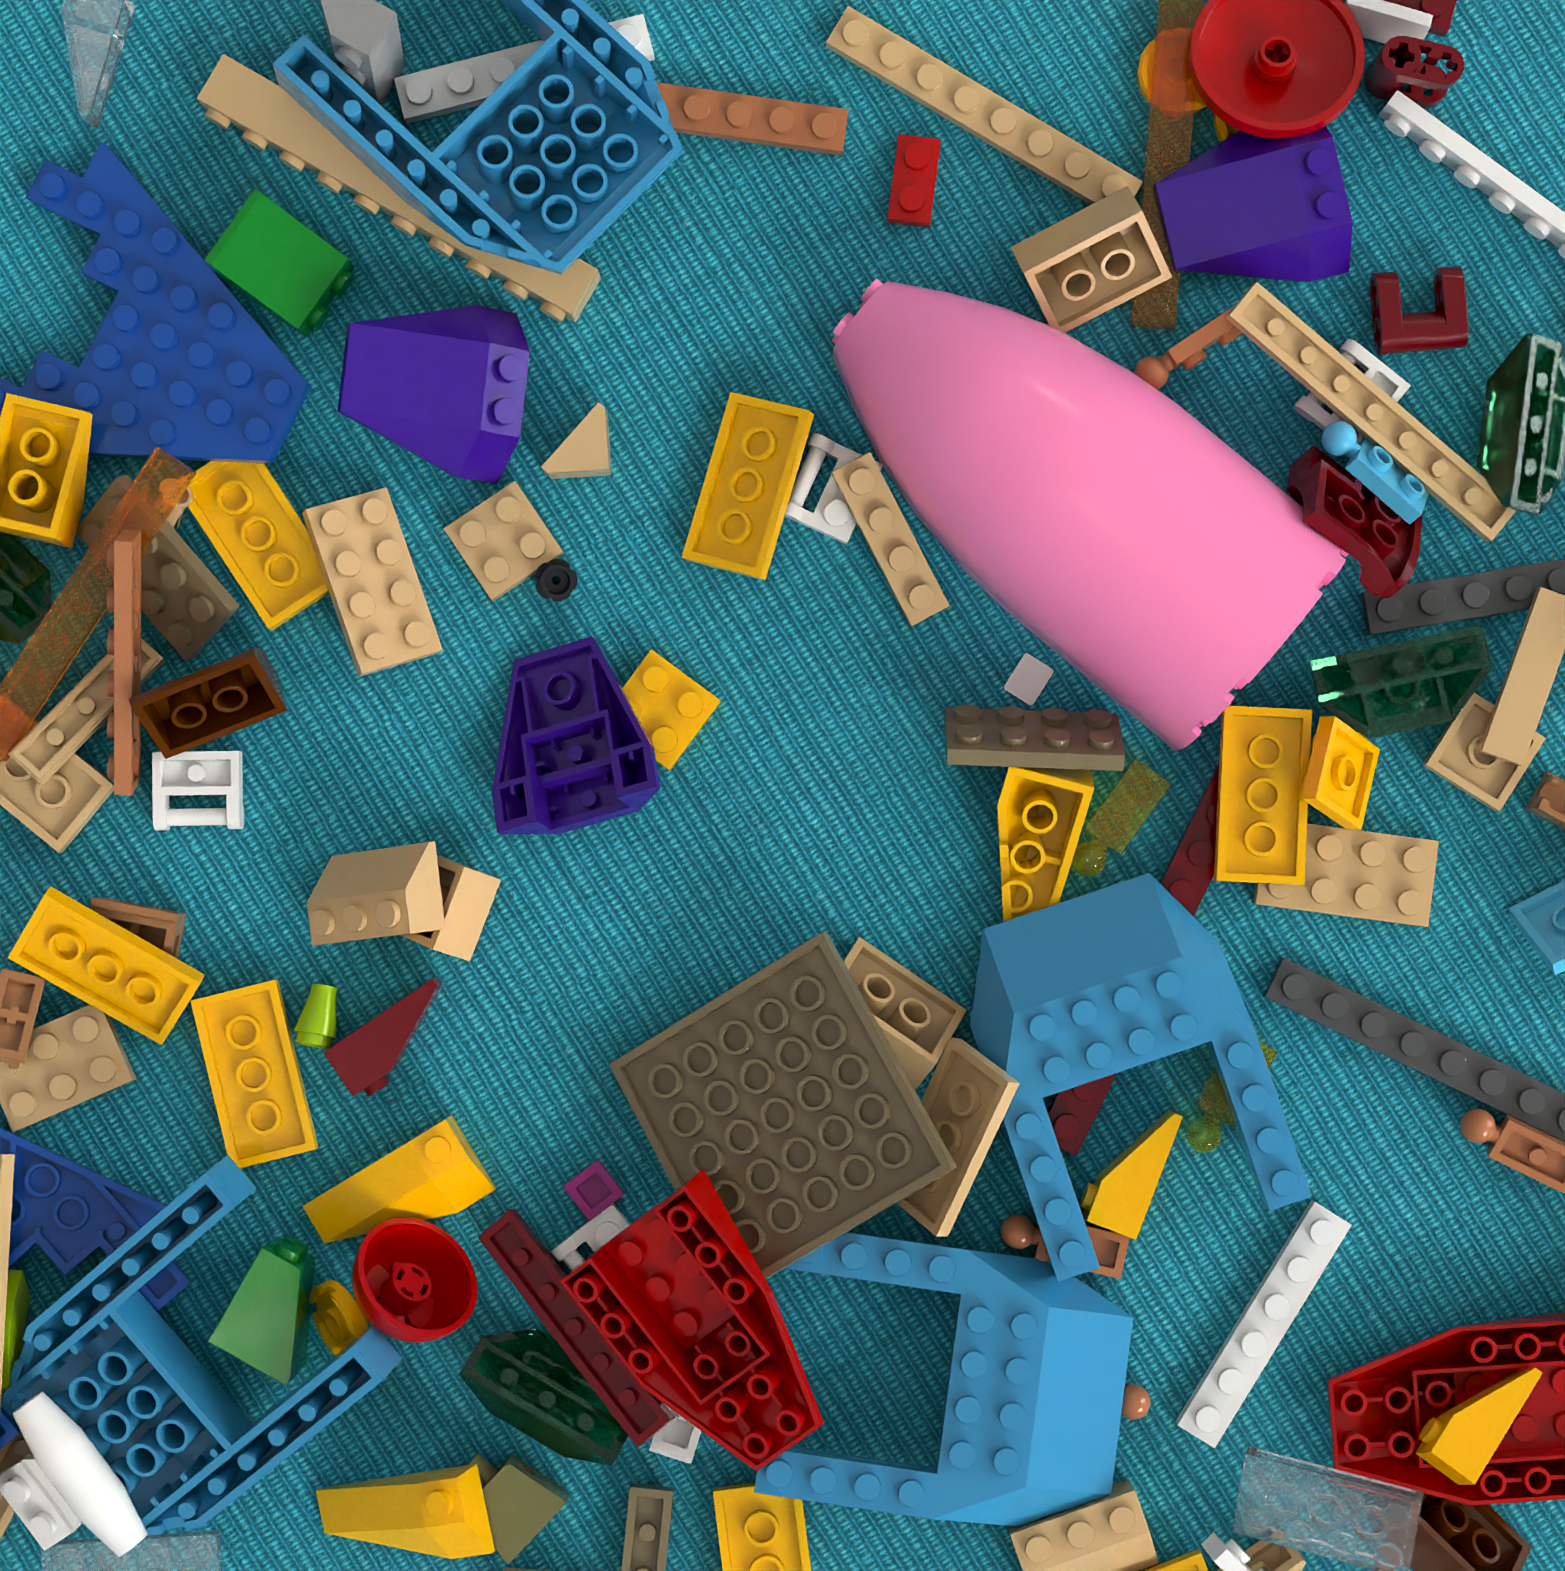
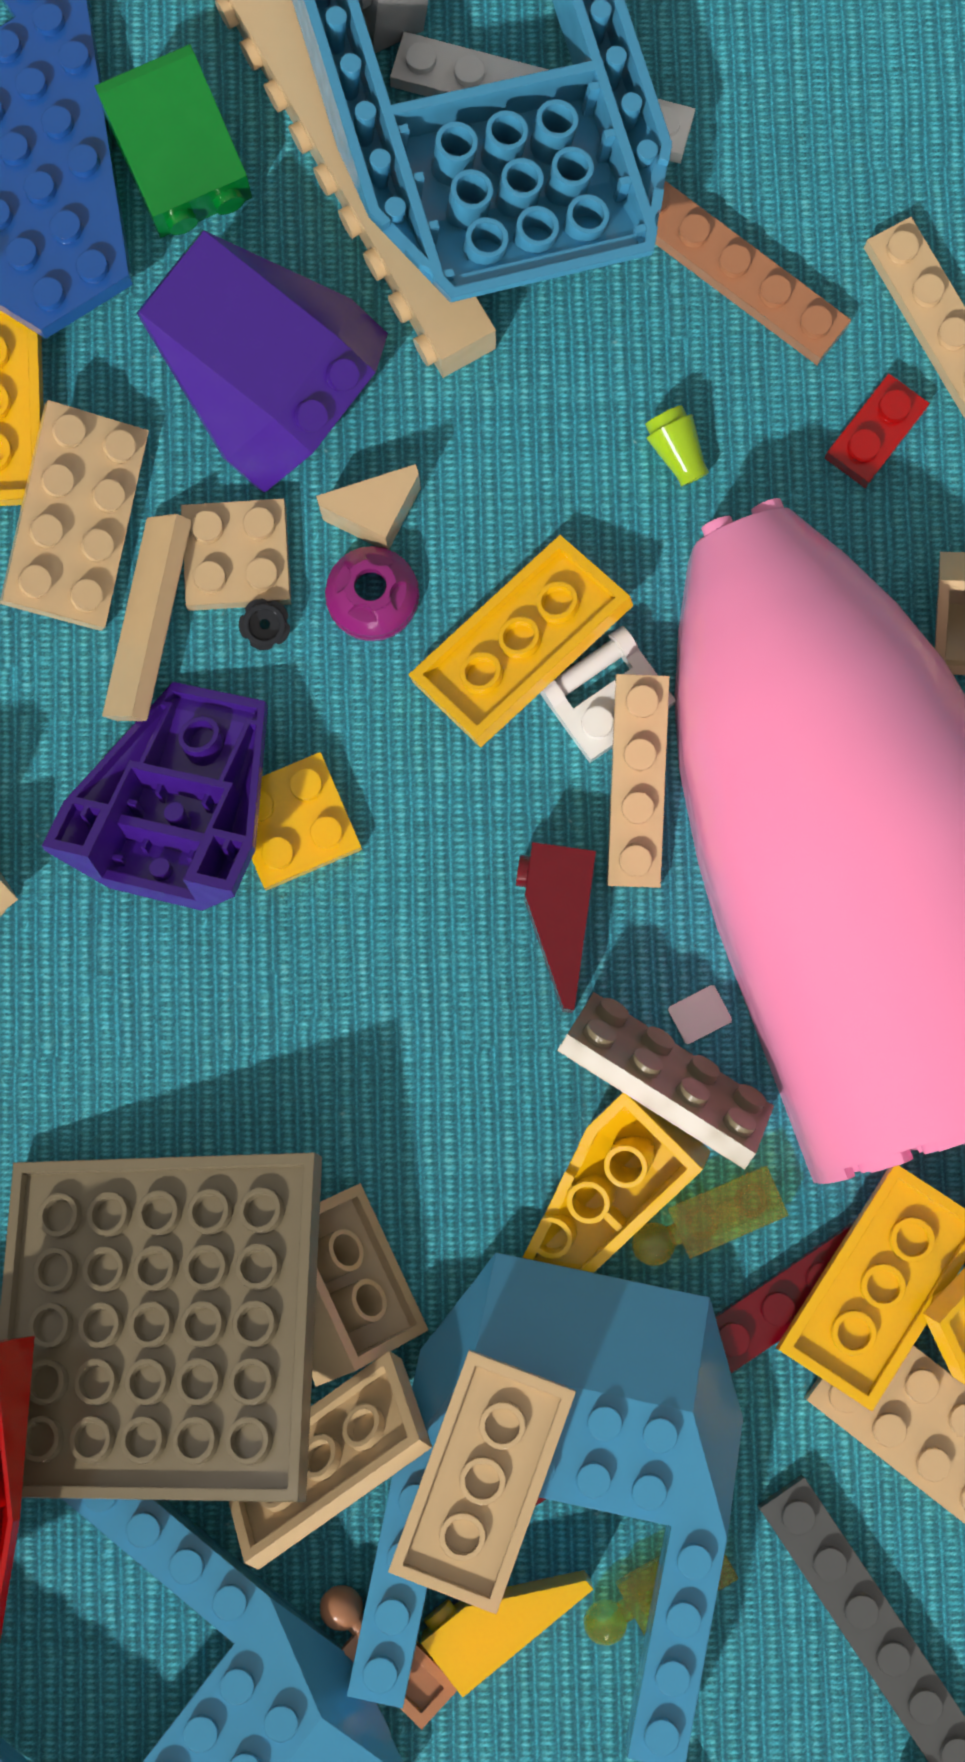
camera: 30 degrees right, 5 degrees down
(469, 625) = (147, 618): none -> tan tile
(621, 535) = (375, 618): none -> magenta piece
(775, 274) = (677, 443): none -> lime cone
(884, 660) = (558, 904): none -> dark red slope
(1066, 1084) = (482, 1481): none -> tan plate

